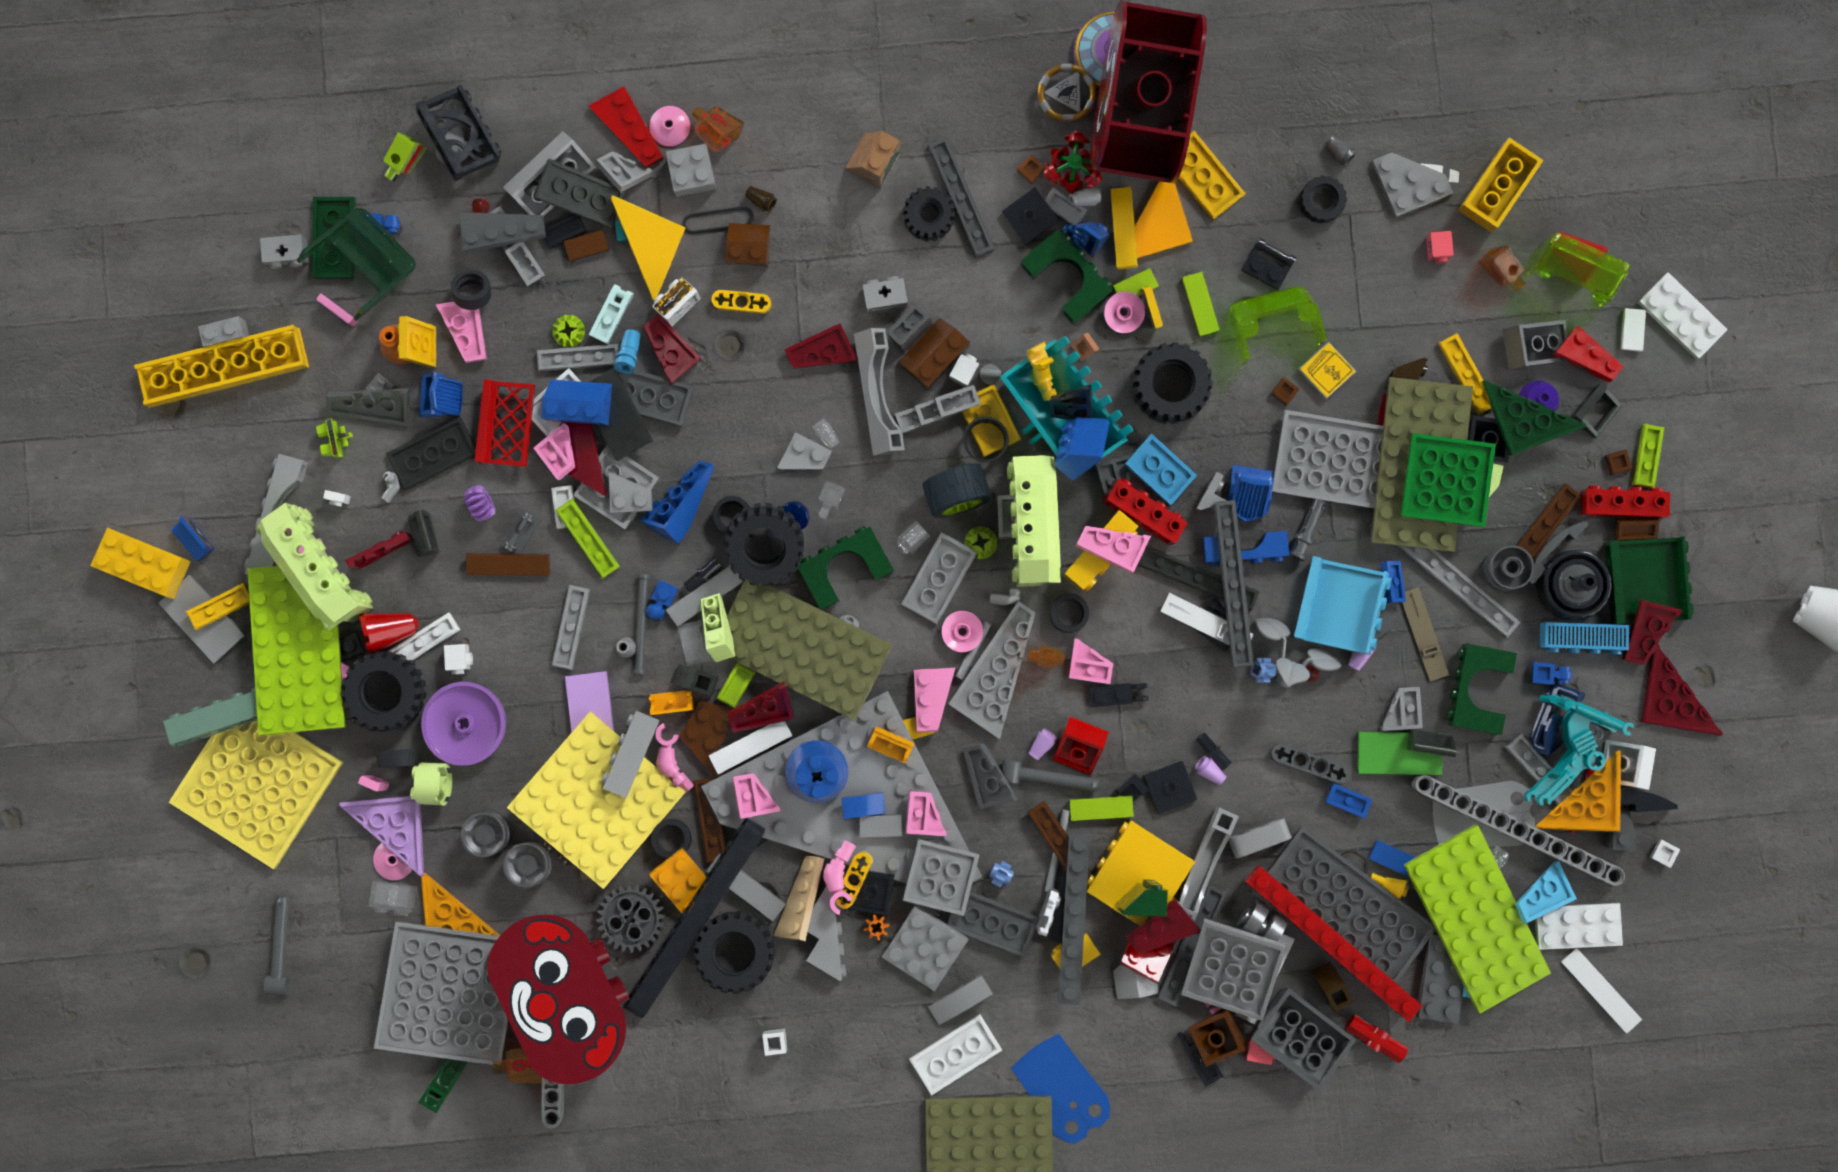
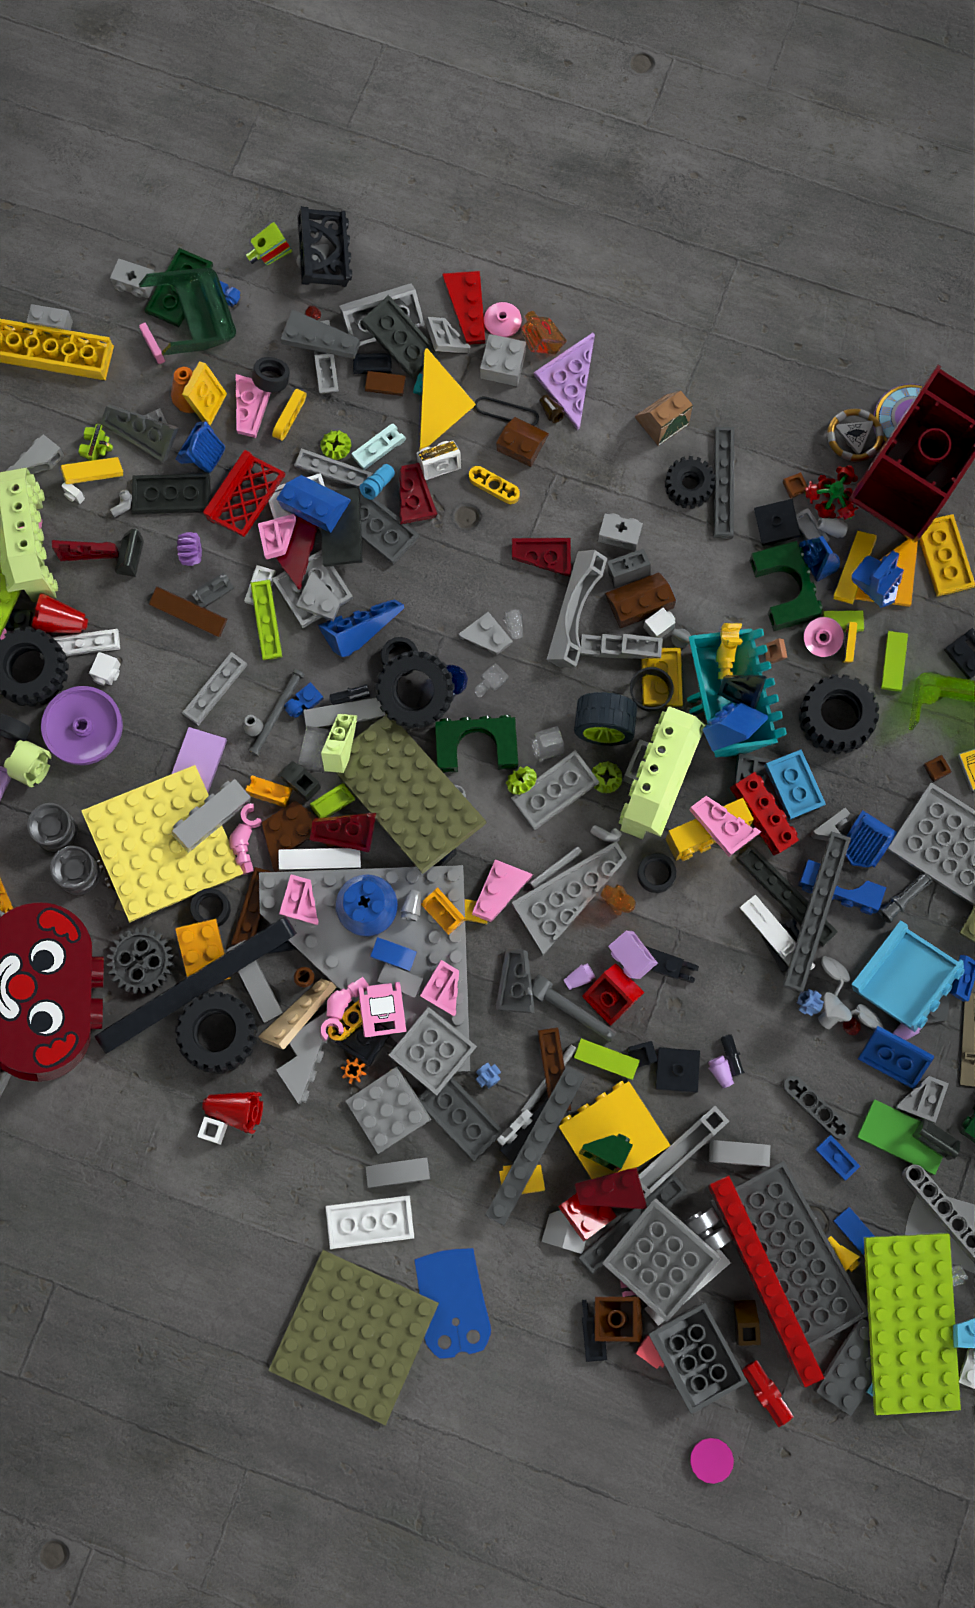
camera: 25 degrees right, 10 degrees down
(344, 467) = (91, 470): none -> yellow tile
(508, 321) = (289, 414): none -> yellow beam
(761, 158) = (567, 378): none -> lavender tile
(786, 868) = (301, 973): none -> reddish brown cone
(786, 1013) = (238, 1109): none -> red cone
(859, 753) = (412, 907): none -> light grey cone
(875, 859) = (381, 1005): none -> bright pink container
(911, 580) = (517, 787): none -> lime gear
(959, 620) = (554, 835): bright pink dish -> none
(1082, 702) = (632, 955): none -> lavender brick
(1089, 665) = (653, 926): bright pink wing -> none
(1152, 232) = (879, 578): none -> blue piece
(1353, 1118) = (711, 1460): none -> dark pink tile
(1362, 685) = (895, 1057): none -> blue tile

